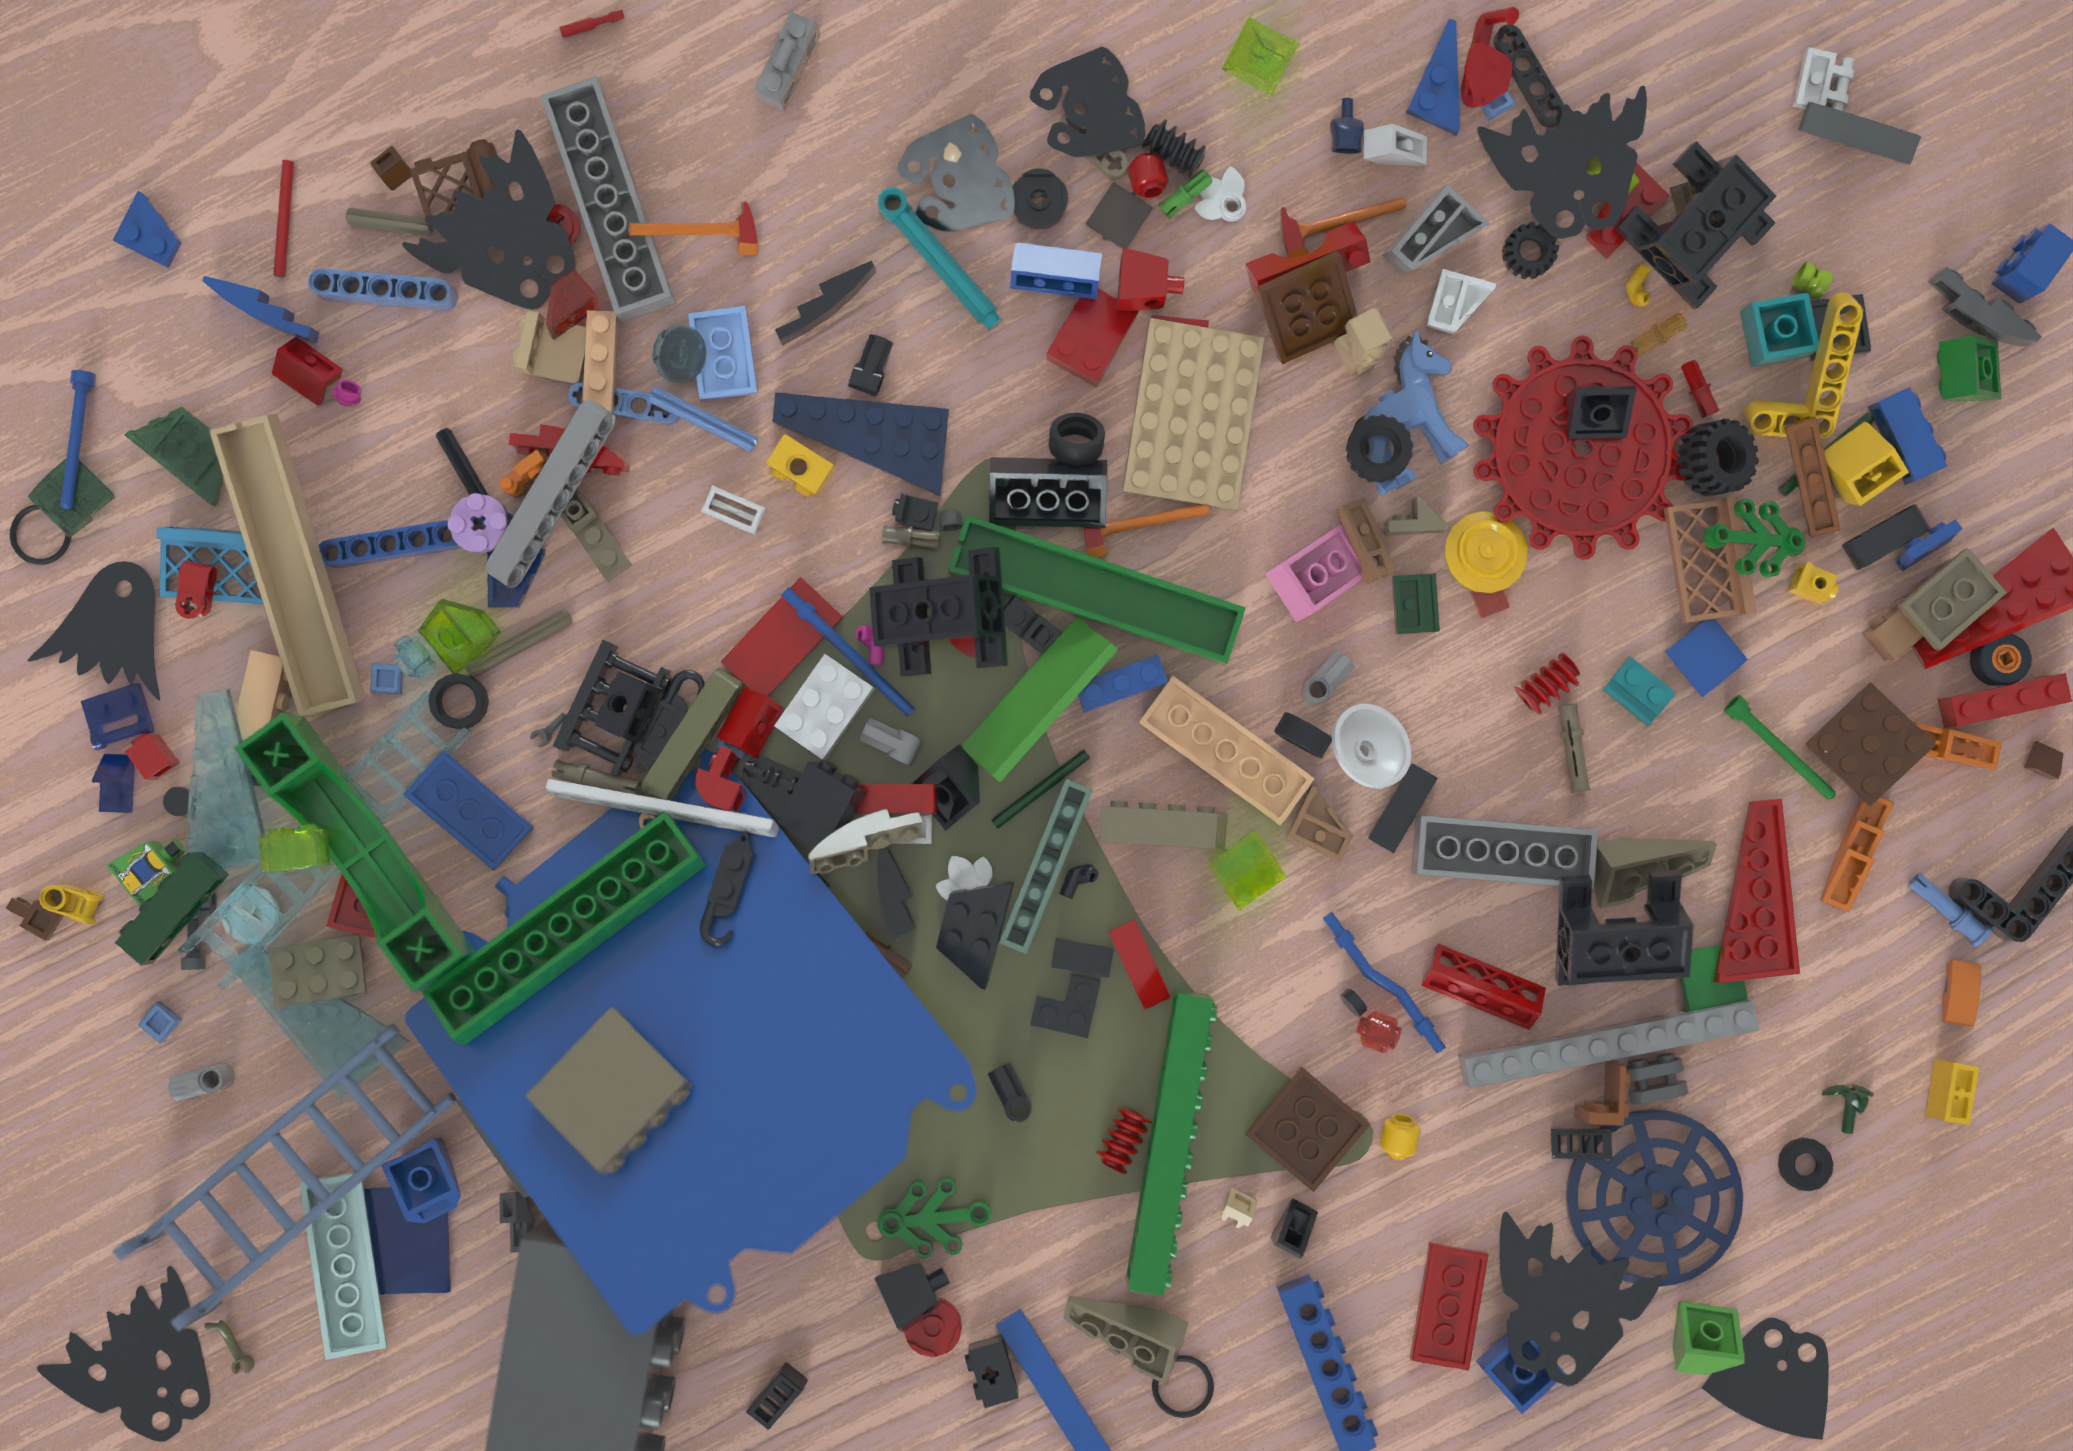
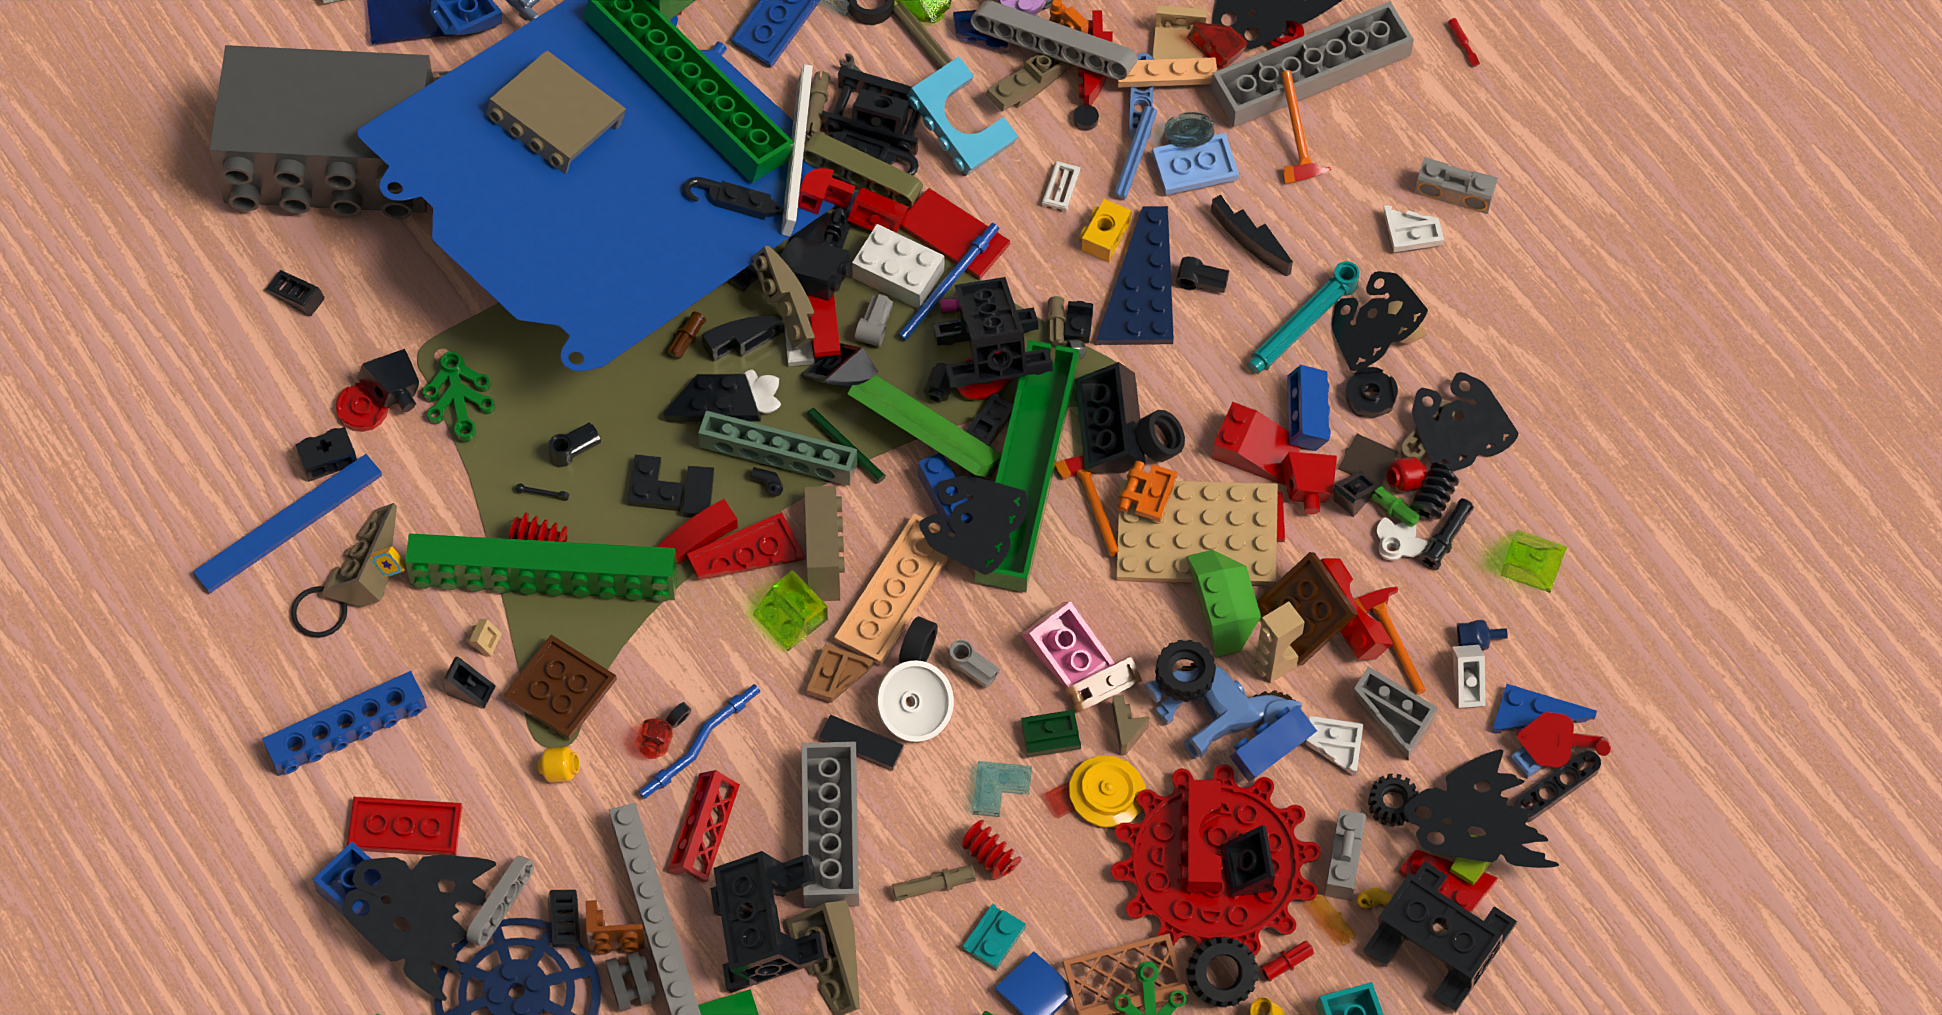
camera: 85 degrees right, 25 degrees down
(614, 645) = (967, 150): none -> medium azure arch
(644, 470) = (1086, 117): none -> black tile
(836, 122) = (1412, 230): none -> white wing
(977, 679) = (937, 386): none -> black brick
(1055, 1155) = (562, 495): none -> black hinge
(1148, 1312) = (388, 561): none -> yellow tile
(1154, 453) = (1155, 493): none -> orange plate
(1159, 902) = (751, 548): none -> red wing
(1162, 233) = (1354, 492): none -> black slope
(1179, 641) = (989, 527): none -> black piece
(1234, 152) = (1442, 542): none -> black pin
(1282, 395) = (1225, 600): none -> bright green wedge
(1461, 672) = (996, 779): none -> clear light blue plate
(1467, 366) = (1272, 742): none -> blue brick
(1526, 452) = (1202, 866): none -> red arch
(1554, 1210) = (500, 900): none -> light grey beam
(1591, 310) = (1345, 855): none -> light grey piece

